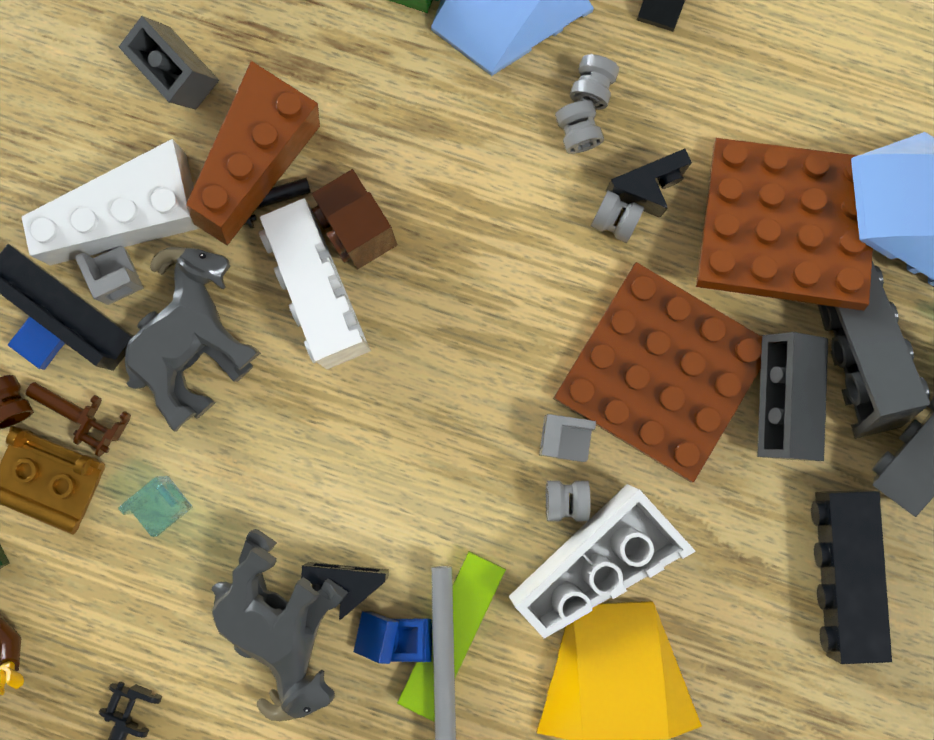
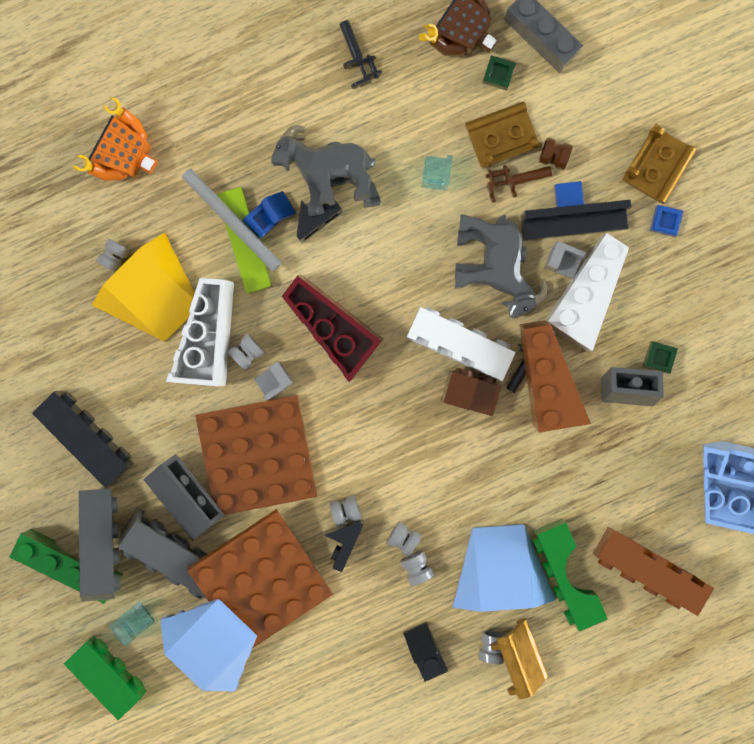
camera: 135 degrees right, 5 degrees up
(110, 71) = (660, 357): none -> dark green plate
(439, 425) = (336, 329): none -> dark red wedge

